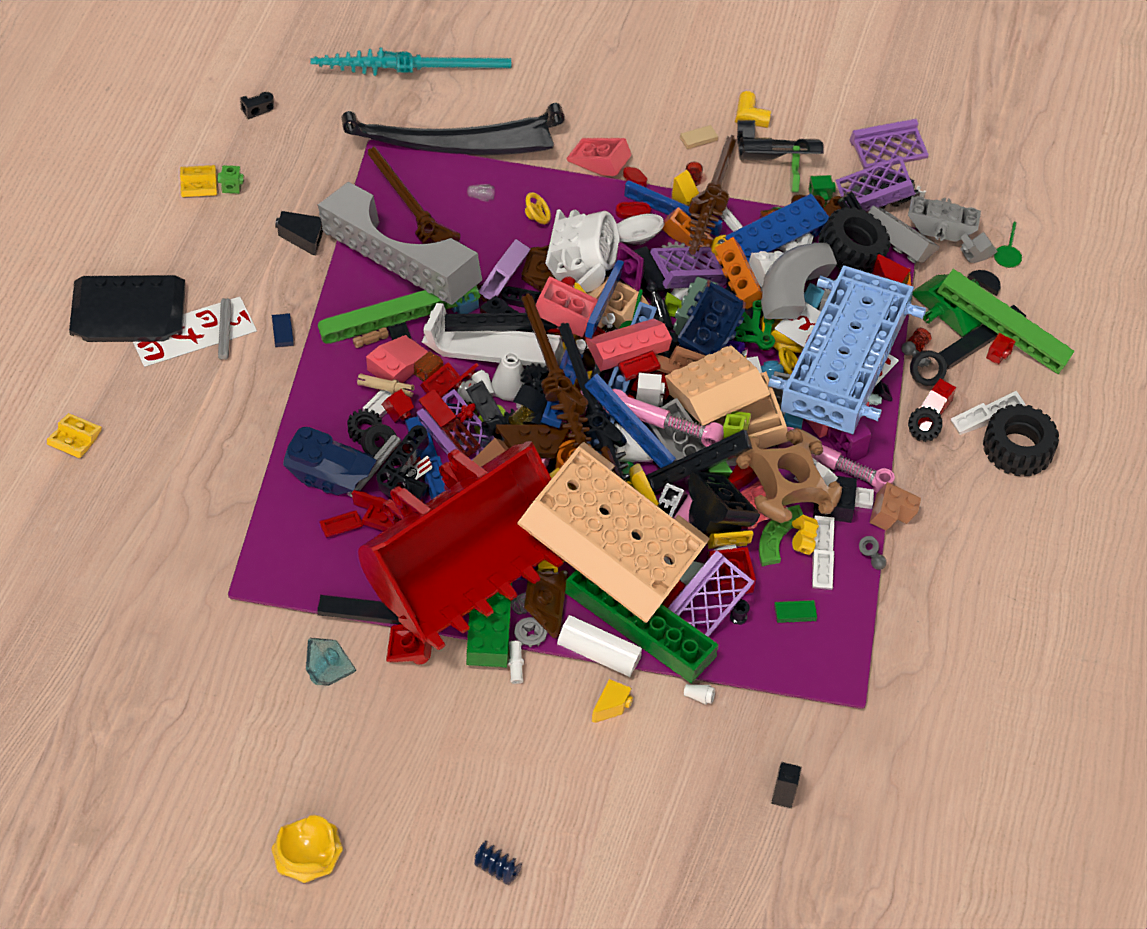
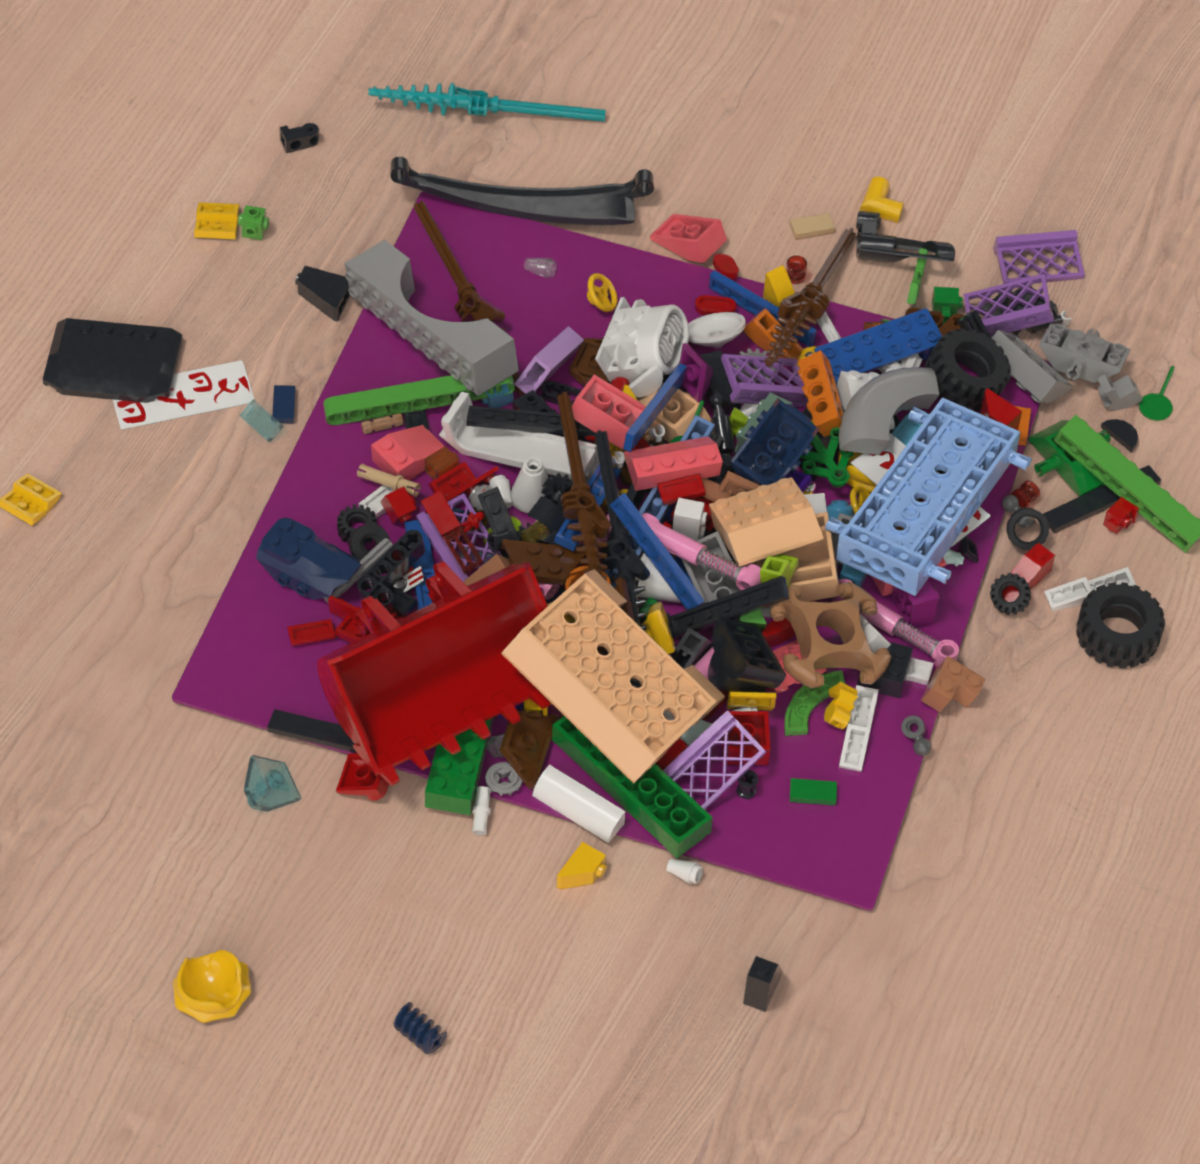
camera: 10 degrees right, 0 degrees up
(224, 329) = (218, 395): light grey axle -> none
(265, 346) = (261, 420): none -> clear light blue tile

